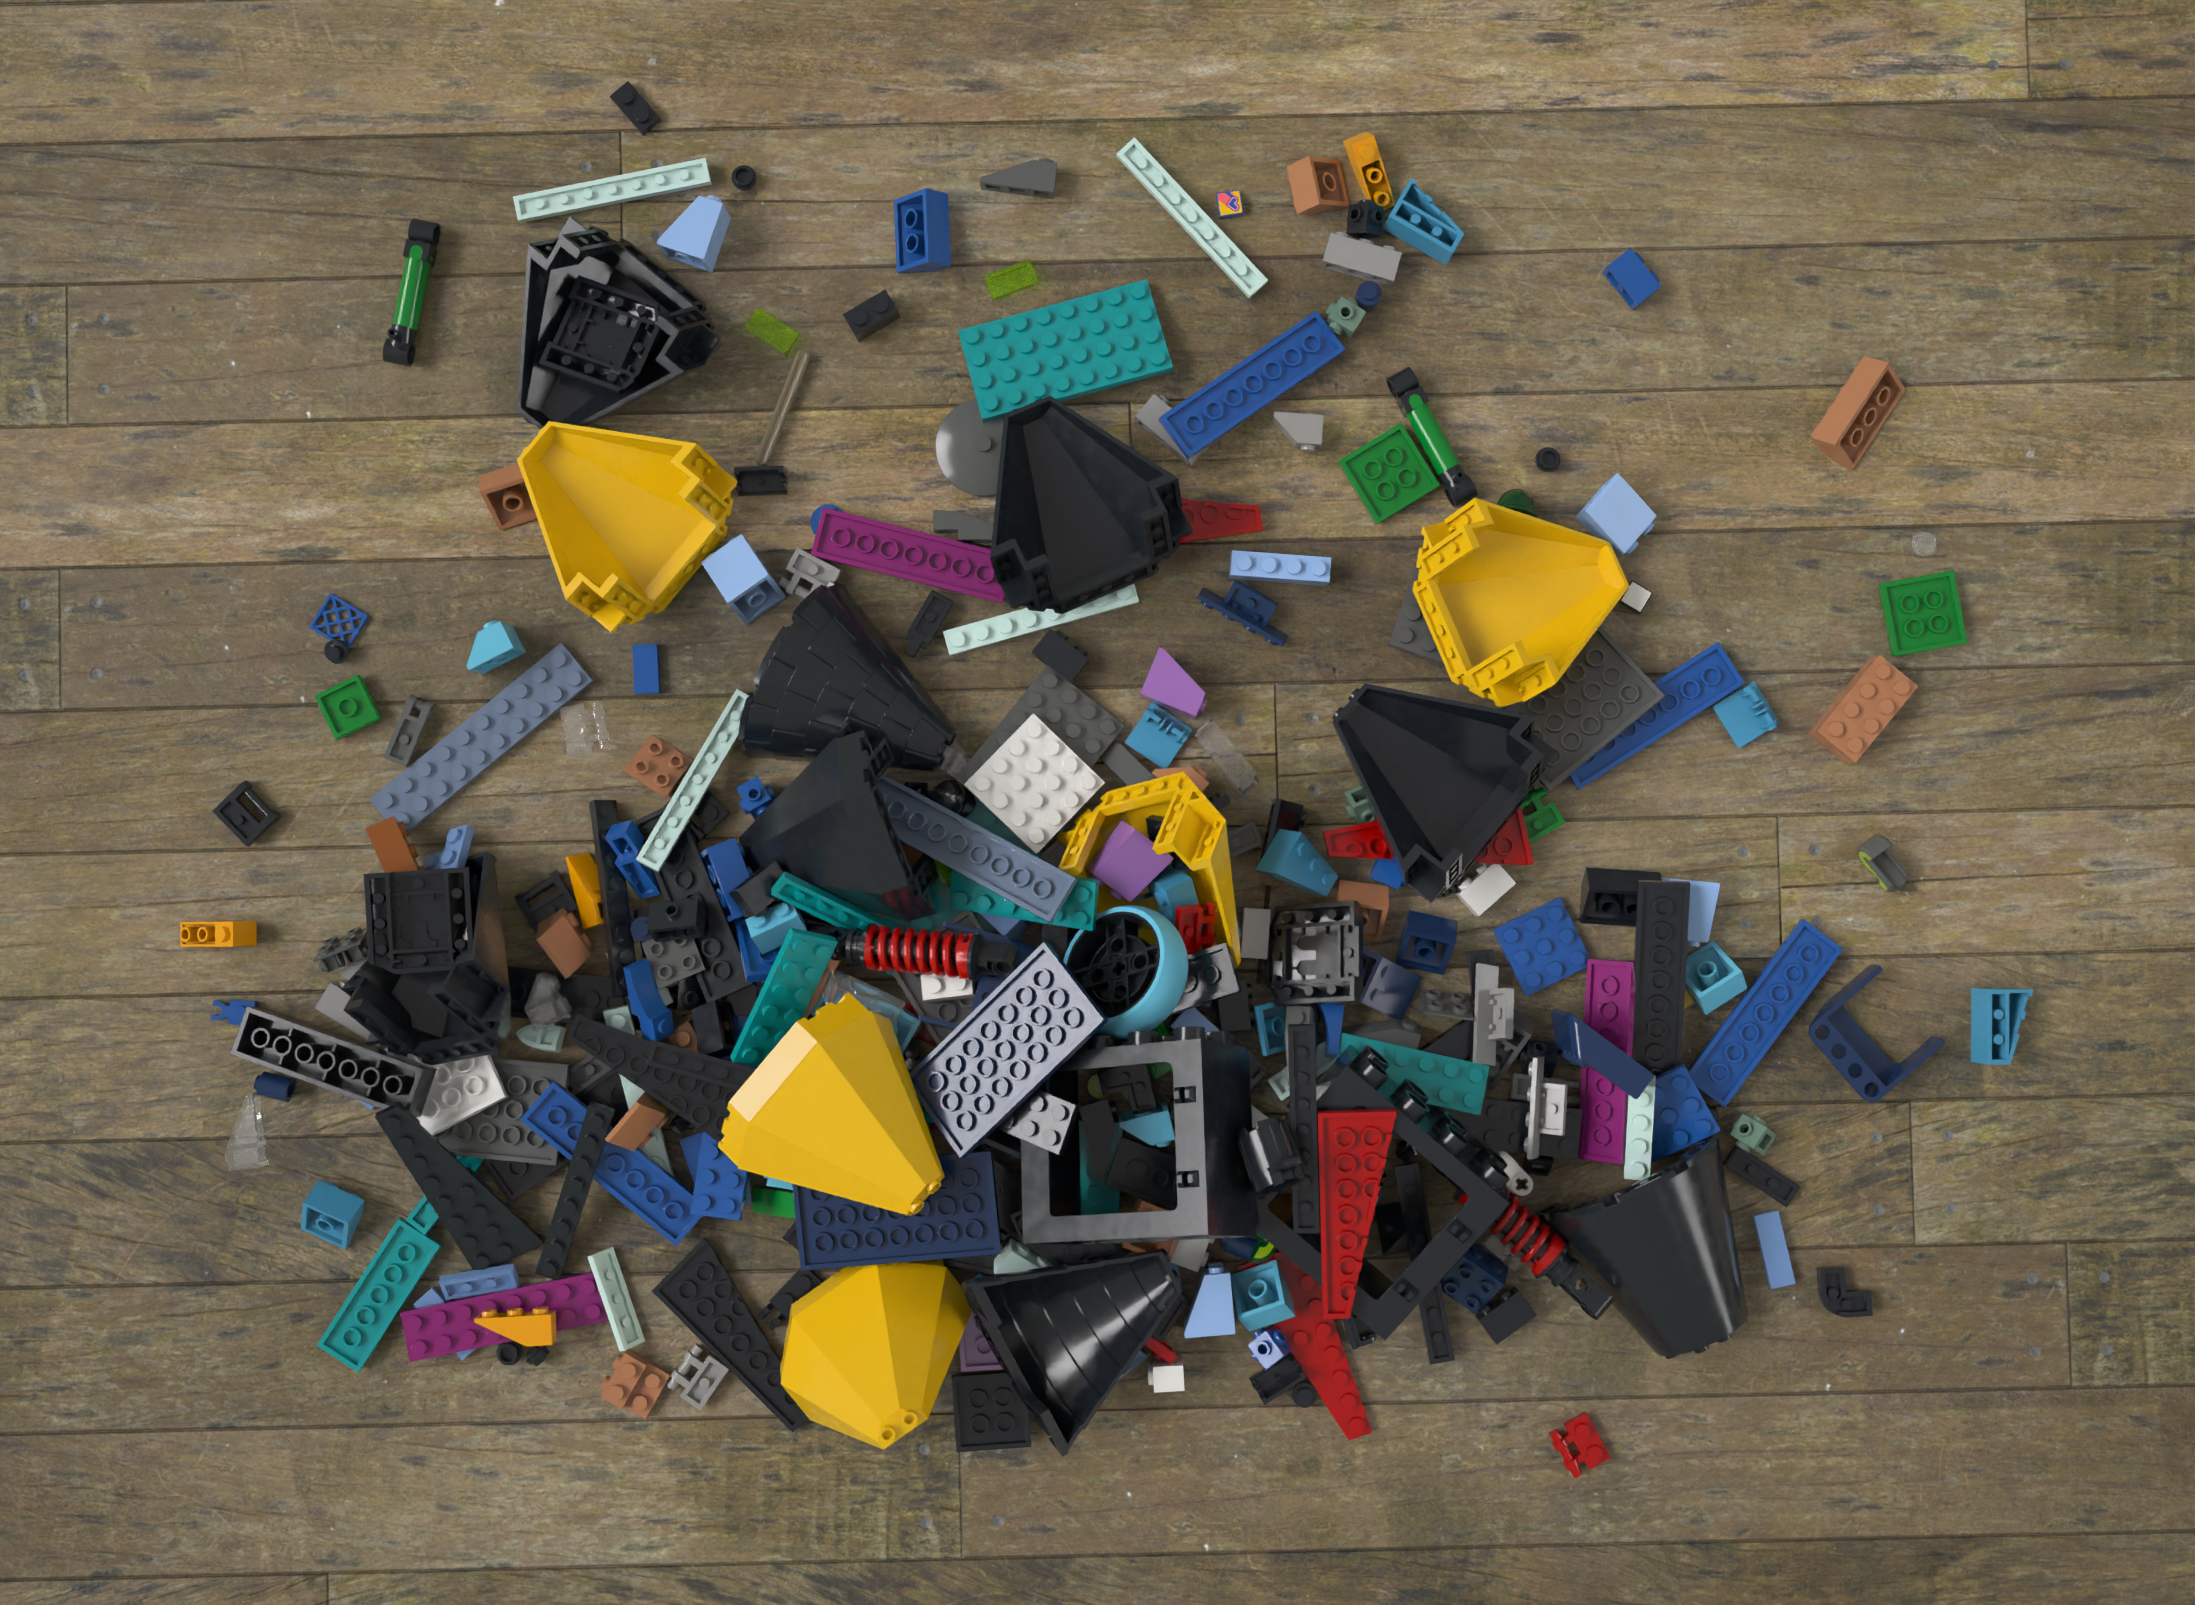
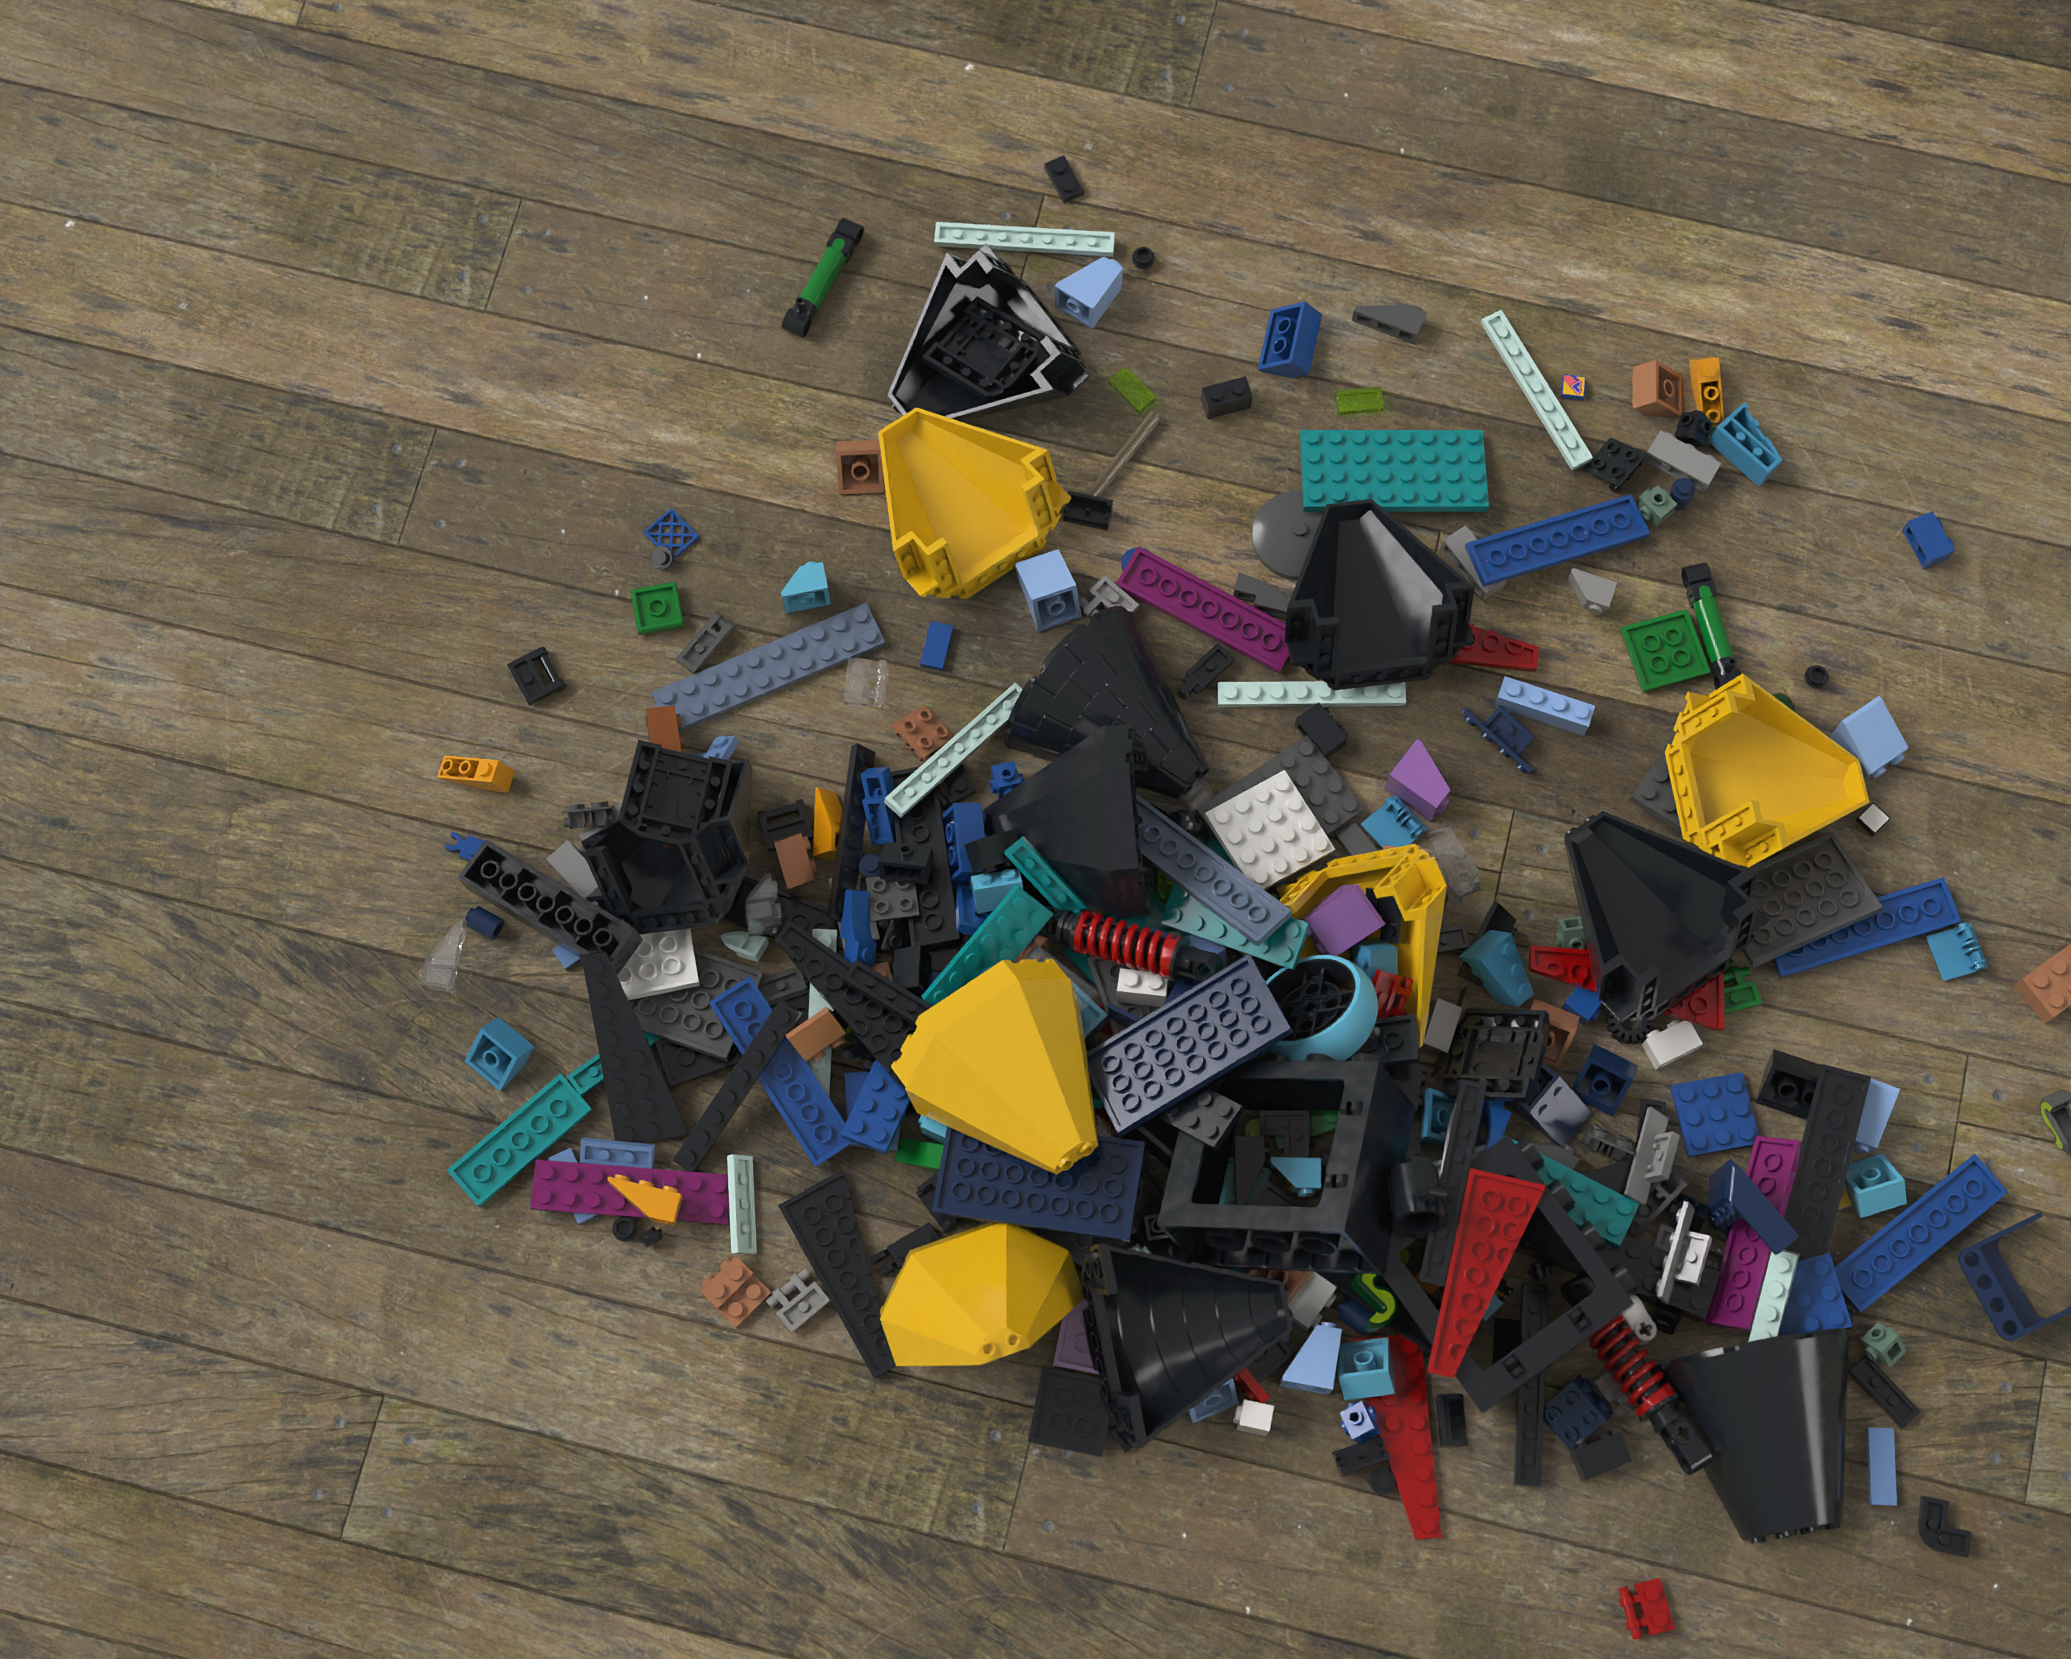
camera: 15 degrees right, 15 degrees down
(1292, 279) = (1615, 463): none -> black hinge

